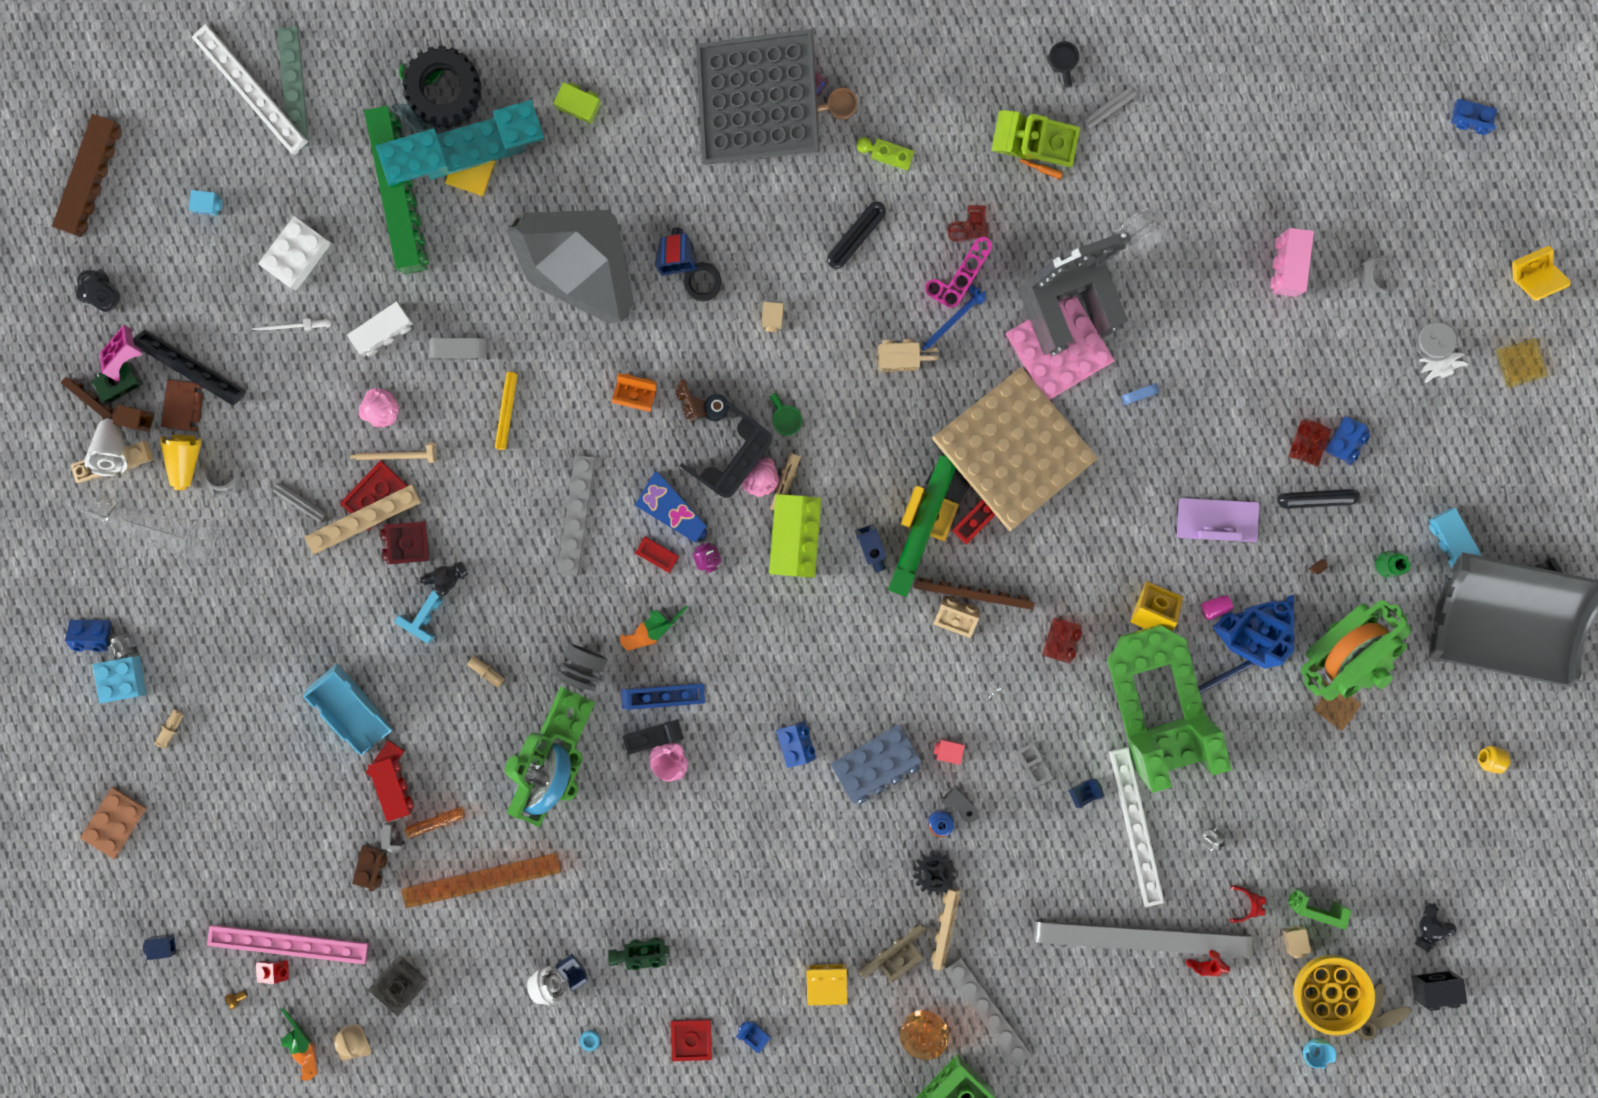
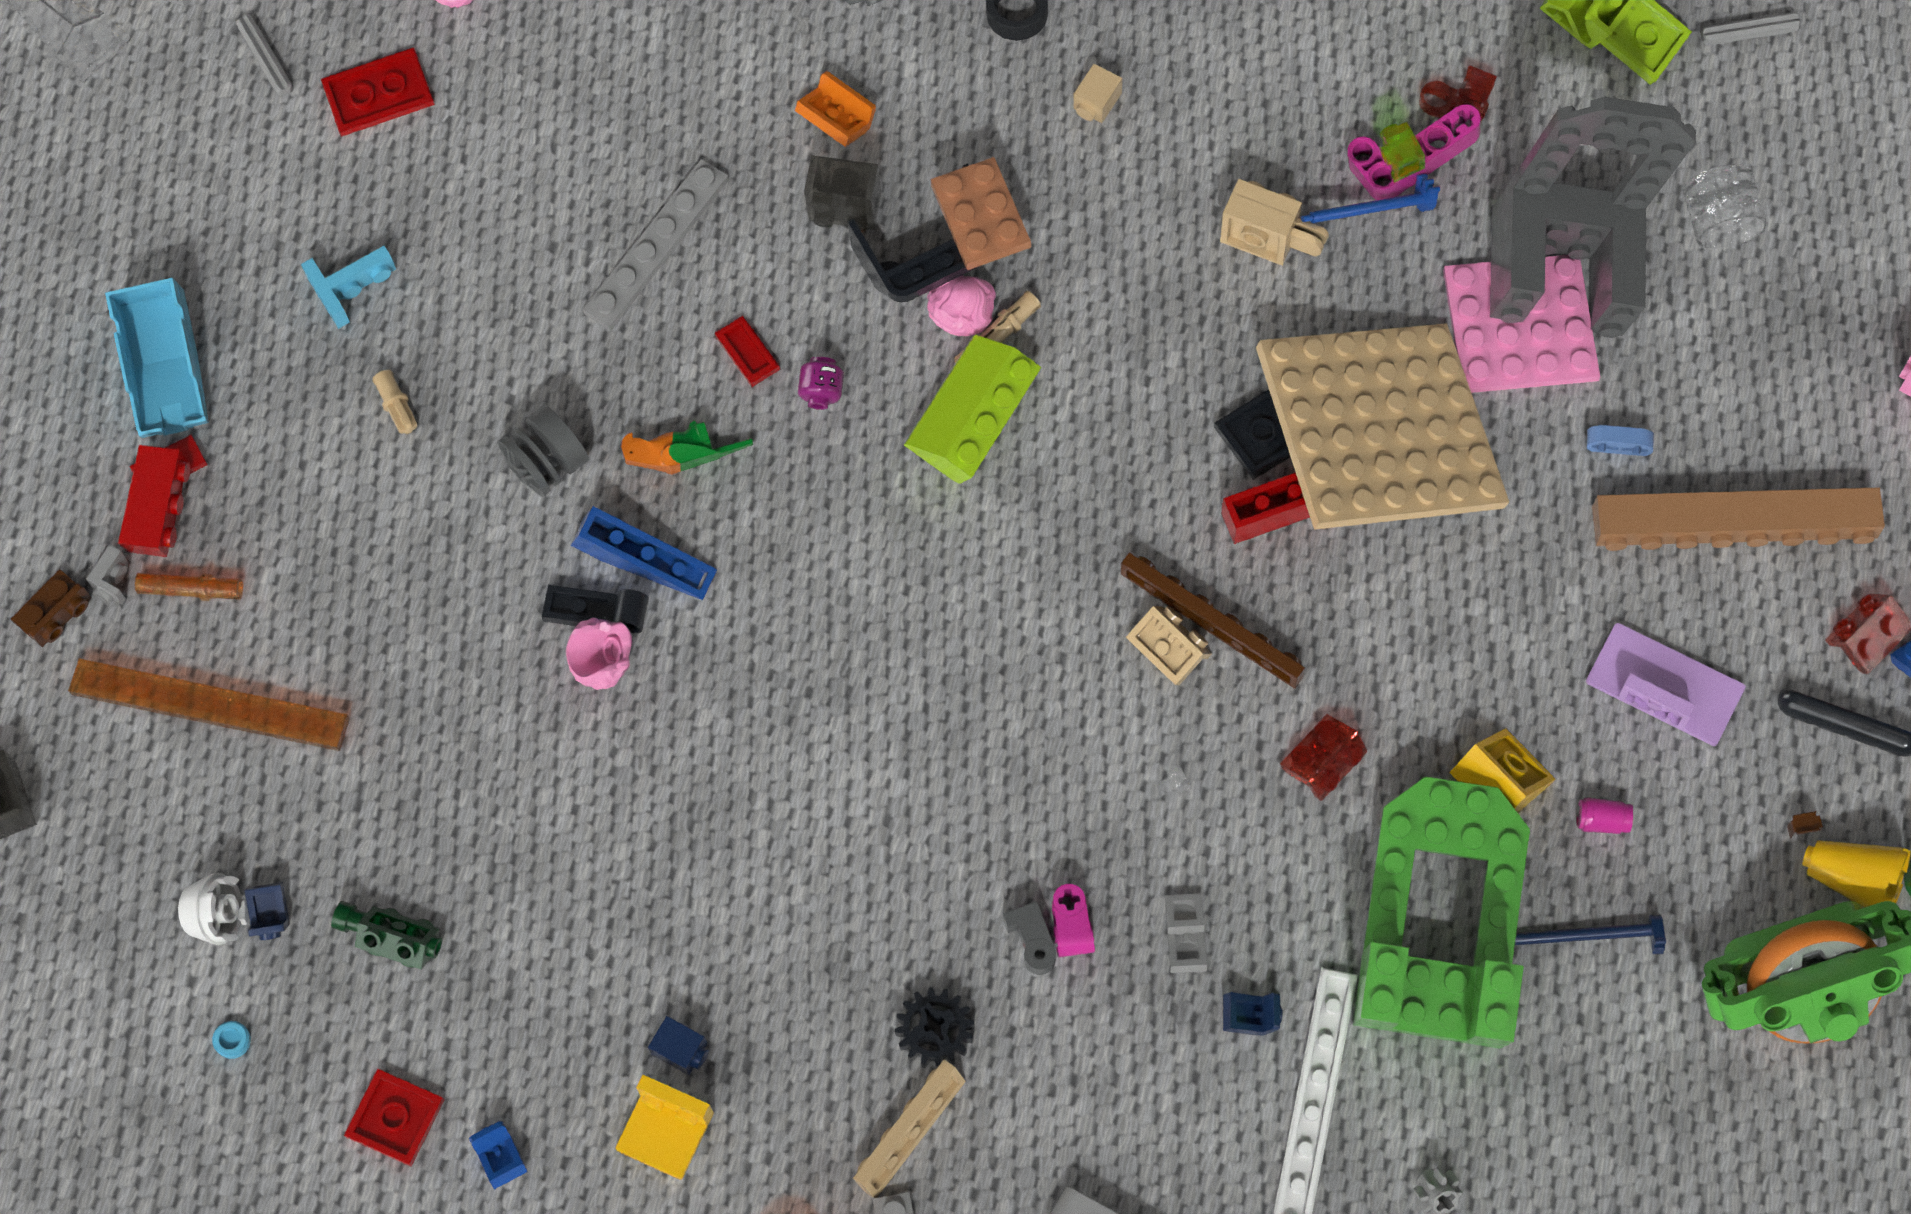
camera: 25 degrees right, 20 degrees down
(363, 519) = (340, 111): tan plate -> none
(404, 543) = (381, 169): dark red plate -> none
(430, 454) = (489, 69): tan piece -> none
(444, 577) = (414, 241): black animal -> none
(506, 410) = (633, 60): yellow axle -> none
(545, 770) = (417, 558): bright green piece -> none
(665, 444) = (842, 192): none -> clear smoke brick
(668, 507) = (800, 289): blue slope -> none
(694, 408) = (915, 163): reddish brown plate -> none
(749, 429) = (980, 213): none -> nougat plate
(786, 419) = (1049, 242): green piece -> none
(796, 744) = (814, 723): blue bracket -> none
(813, 941) = (679, 1046): none -> dark blue brick
(856, 235) = (1279, 39): black piece -> none
(869, 540) = (1084, 463): dark blue torso -> none
(876, 765) = (927, 814): sand blue bracket -> none
(898, 958) = (804, 1137): dark tan bracket -> none
(922, 527) = (1114, 533): green brick -> none
(934, 821) = (984, 961): blue head -> none
(946, 514) = (1182, 450): yellow bracket -> none
(949, 751) = (1055, 843): coral brick -> none
(956, 283) = (1401, 151): none -> clear neon green brick
(978, 789) = (1072, 927): none -> dark pink piece
(1043, 169) = (1609, 69): orange piece -> none
(1219, 410) = (1738, 517): none -> medium nougat brick
(1260, 632) = (1660, 883): blue wedge -> none
(1337, 711) = (1745, 1074): clear orange piece -> none
(1355, 580) = (1859, 870): none -> yellow cone

